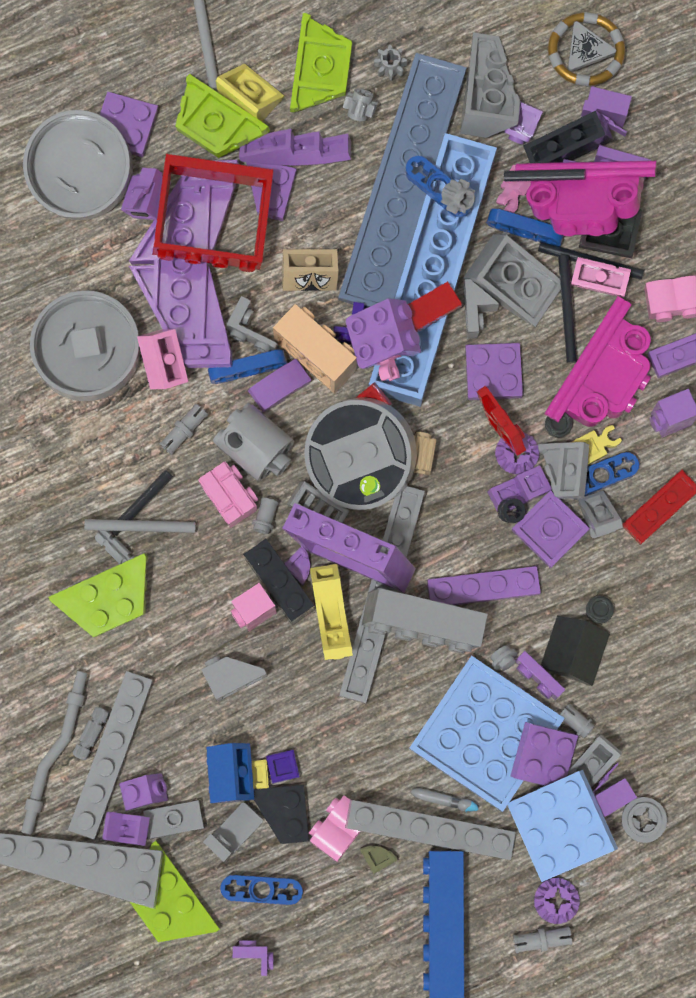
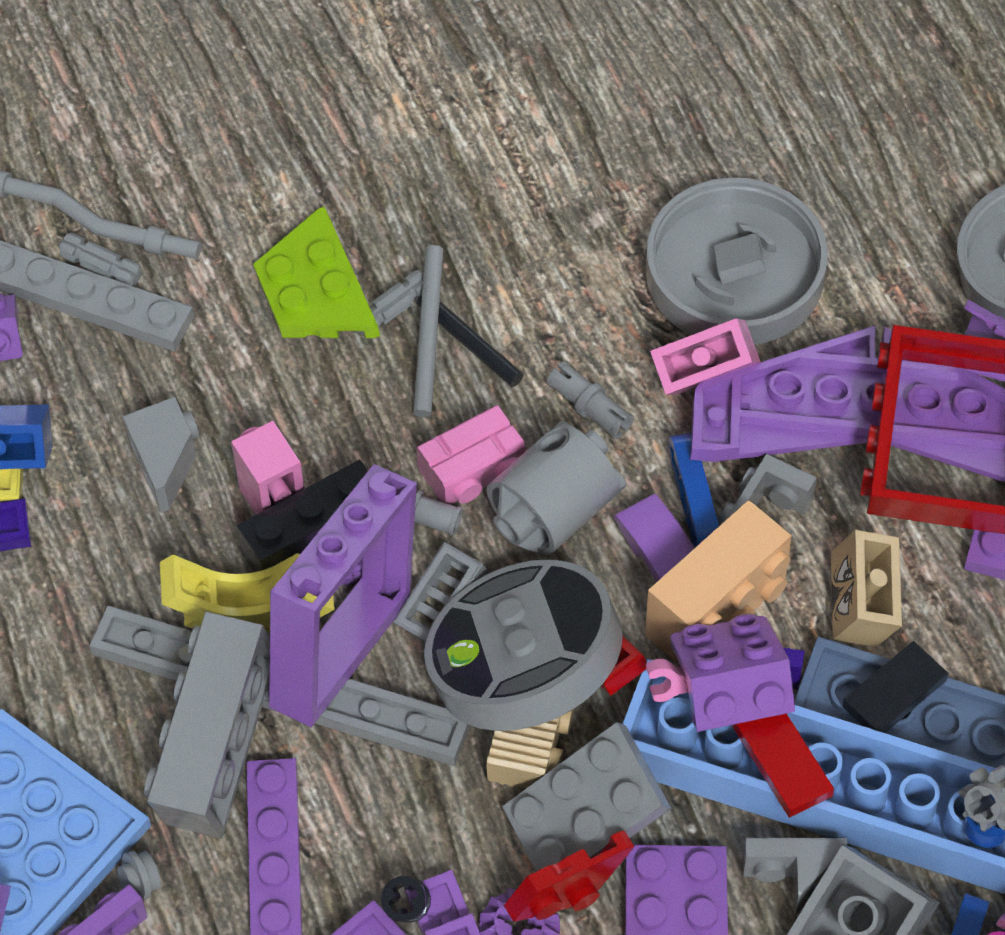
camera: 95 degrees right, 20 degrees down
(372, 254) = (895, 689): none -> black tile
(455, 416) = (587, 800): none -> light grey plate

